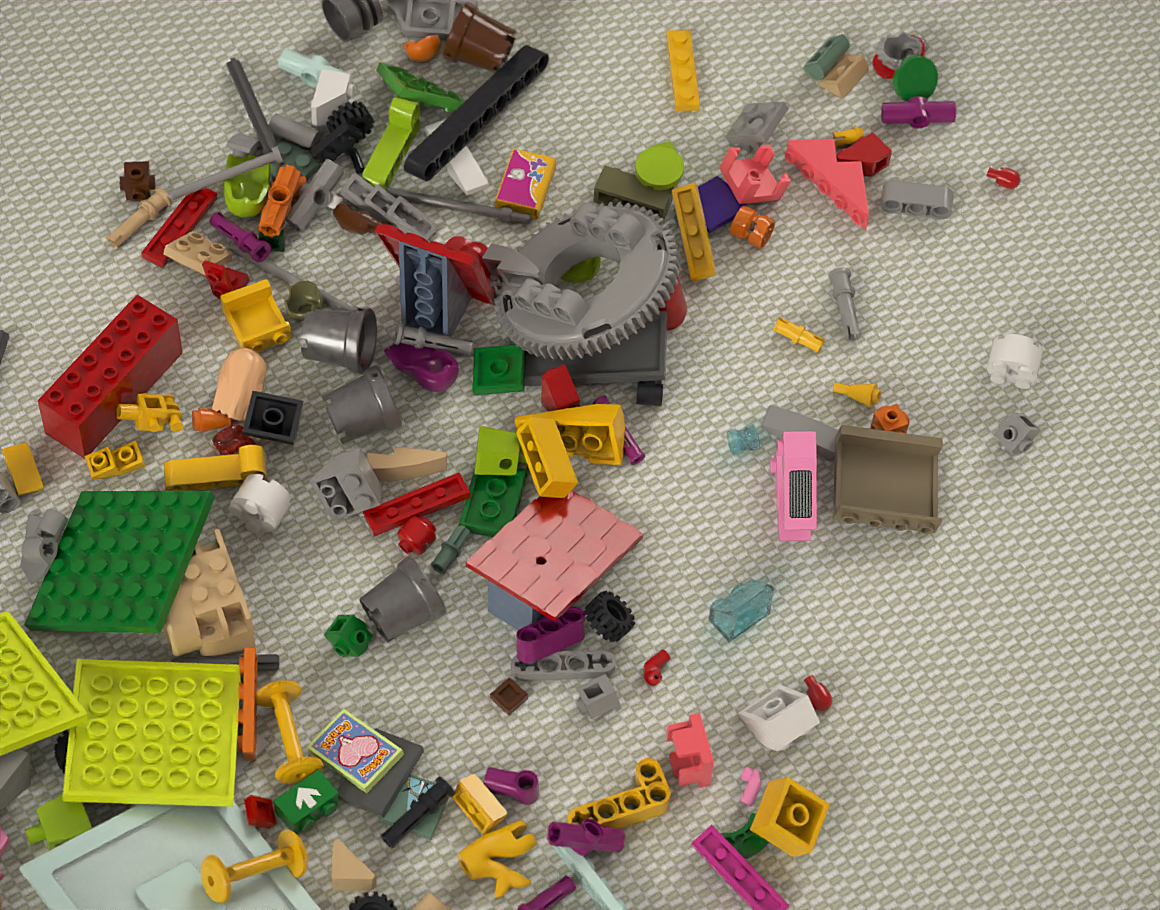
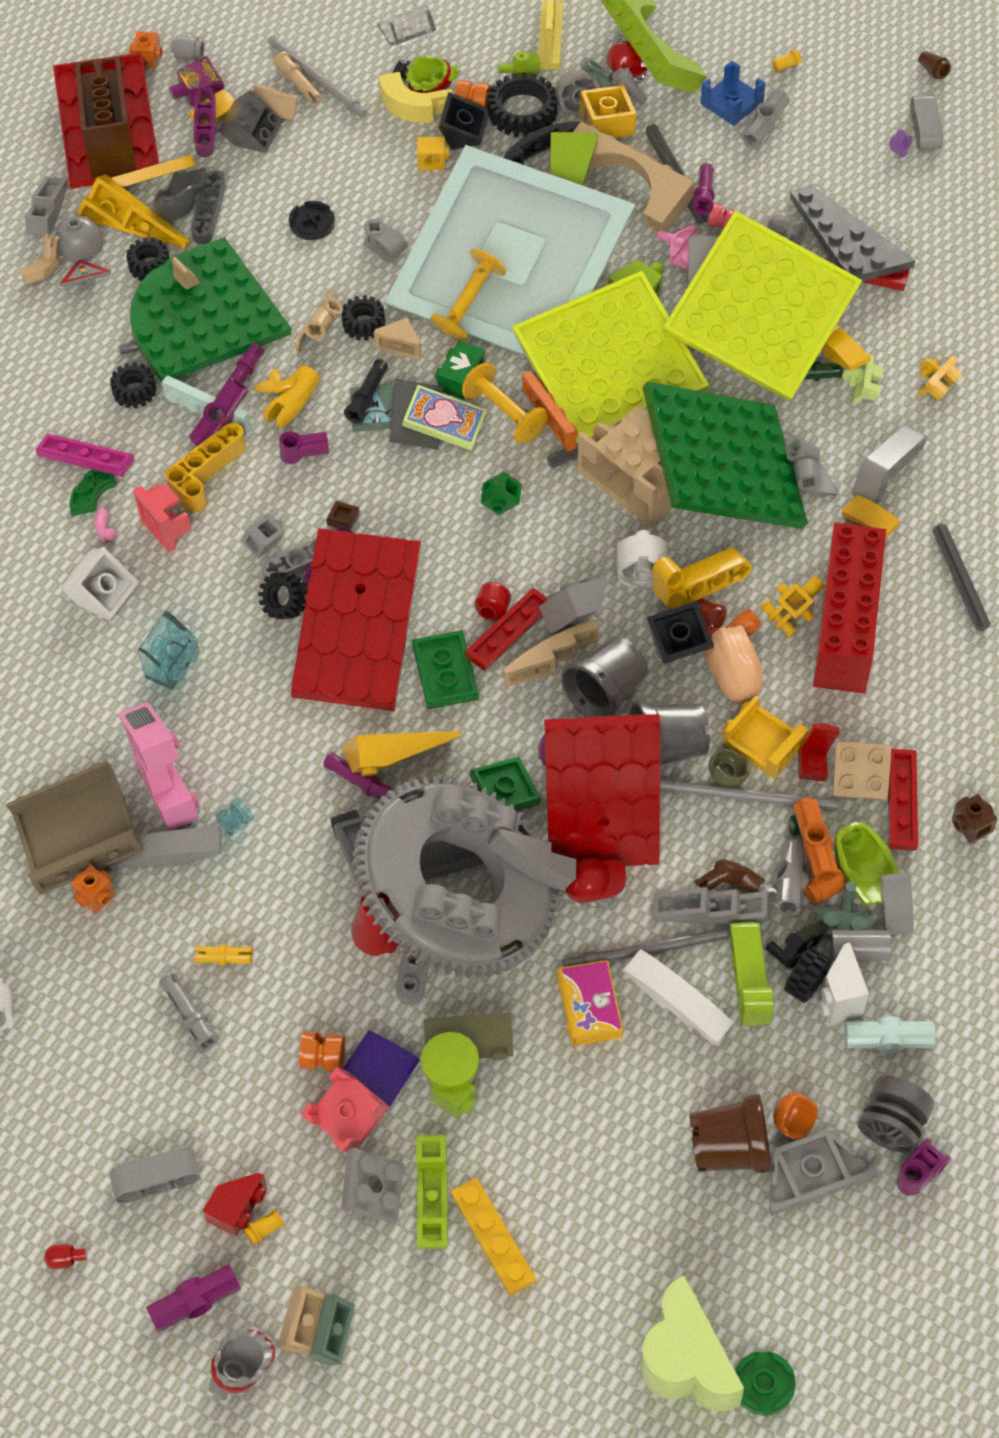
camera: 160 degrees right, 0 degrees up
(111, 463) = (799, 562): yellow slope -> none
(147, 211) = (944, 797): tan pin -> none
(226, 174) = (852, 884): light grey bar -> none
(246, 240) = (833, 804): magenta pin -> none
(251, 105) = (921, 951): dark grey axle -> none
(260, 811) = (494, 349): red plate -> none
(402, 601) = (467, 530): flat silver piece -> none
(420, 90) = (765, 1053): bright green plate -> none
(450, 549) = (458, 607): sand green axle -> none
(476, 113) = (682, 1049): black beam -> none
(479, 804) = (322, 420): yellow slope -> none
(497, 452) = (458, 698): lime torso -> none
(546, 457) = (406, 696): yellow brick -> none
(558, 390) = (430, 766): red slope -> none
(651, 667) = (229, 584): red arm -> none
(694, 232) = (381, 1014): yellow plate -> none
(716, 104) = (432, 1192): none -> lime slope
(790, 816) = (56, 497): yellow brick -> none
(818, 694) = (72, 619): red cylinder -> none
(838, 180) = (244, 1154): coral slope -> none
(864, 393) = (133, 918): yellow cone -> none
(915, 78) = (209, 1331): green tile -> none

